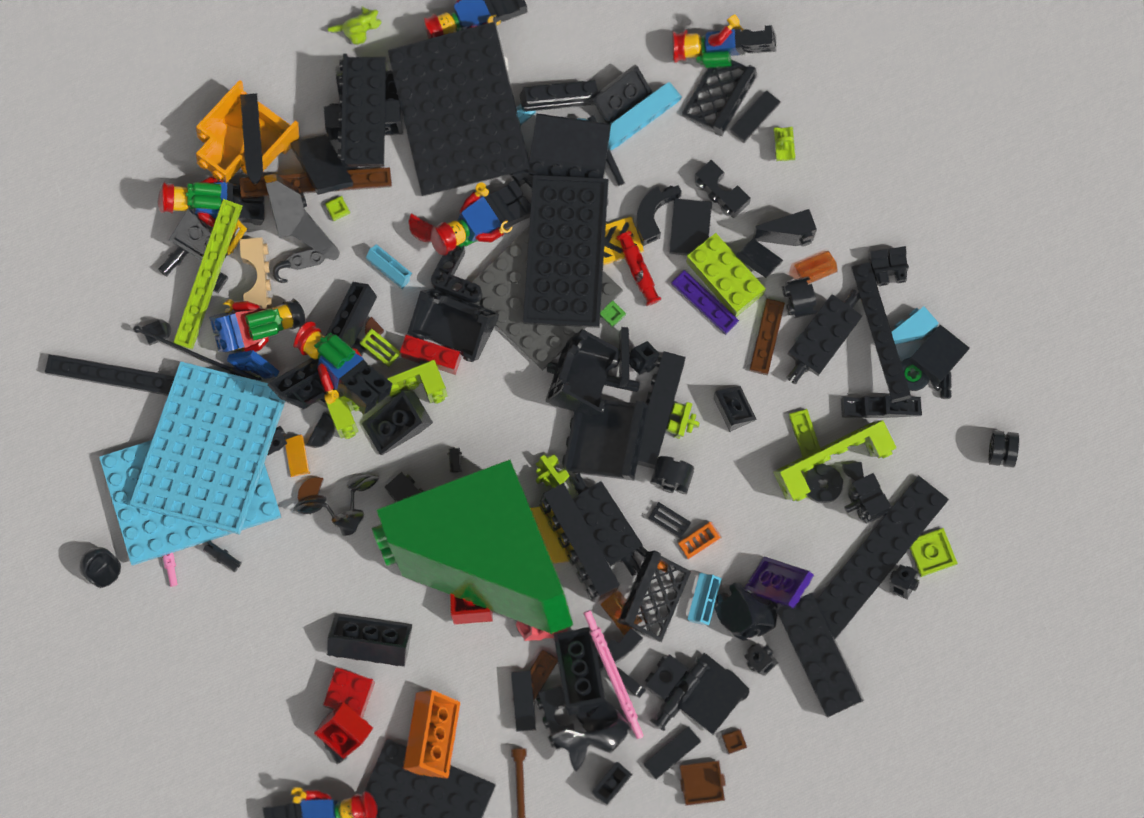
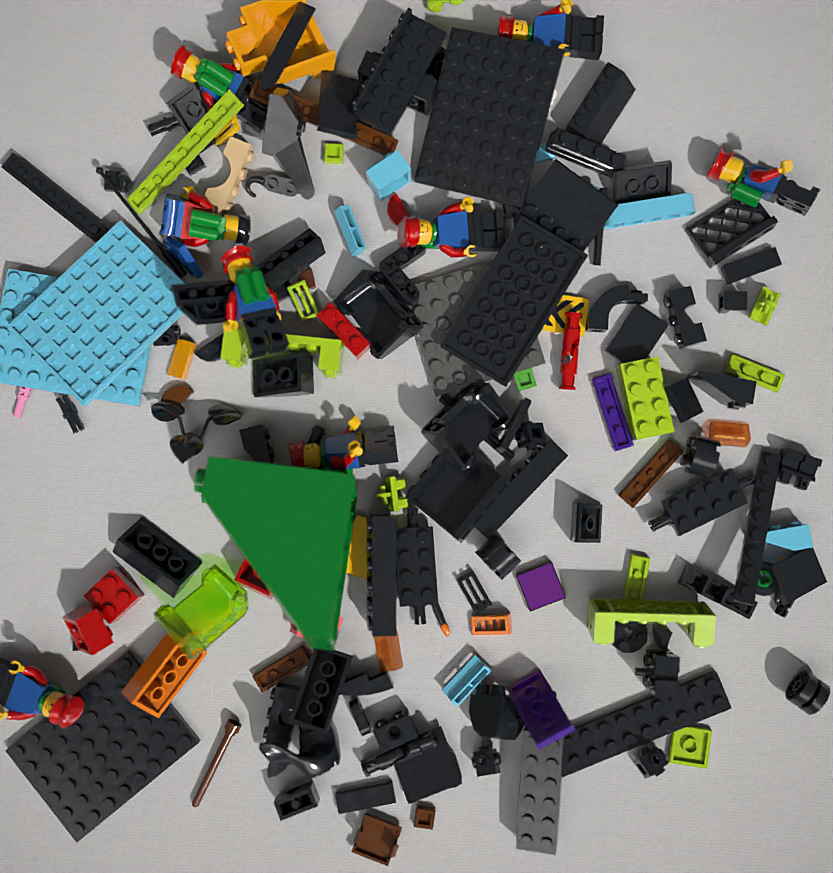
camera: 30 degrees right, 10 degrees up
(398, 201) = (388, 175): none -> medium azure piece
(442, 658) = (204, 612): none -> clear neon green windscreen
(493, 448) = (347, 450): none -> piece
(523, 701) = (260, 684): black tile -> none
(551, 48) = (602, 105): none -> black slope
(608, 662) = (349, 707): bright pink axle -> none
(642, 585) = (411, 646): black fence -> none
(678, 428) = (536, 512): lime hips -> none
(725, 484) = (540, 586): none -> dark purple tile
(755, 154) = (732, 301): none -> black panel
(816, 203) = (749, 370): none -> lime tile

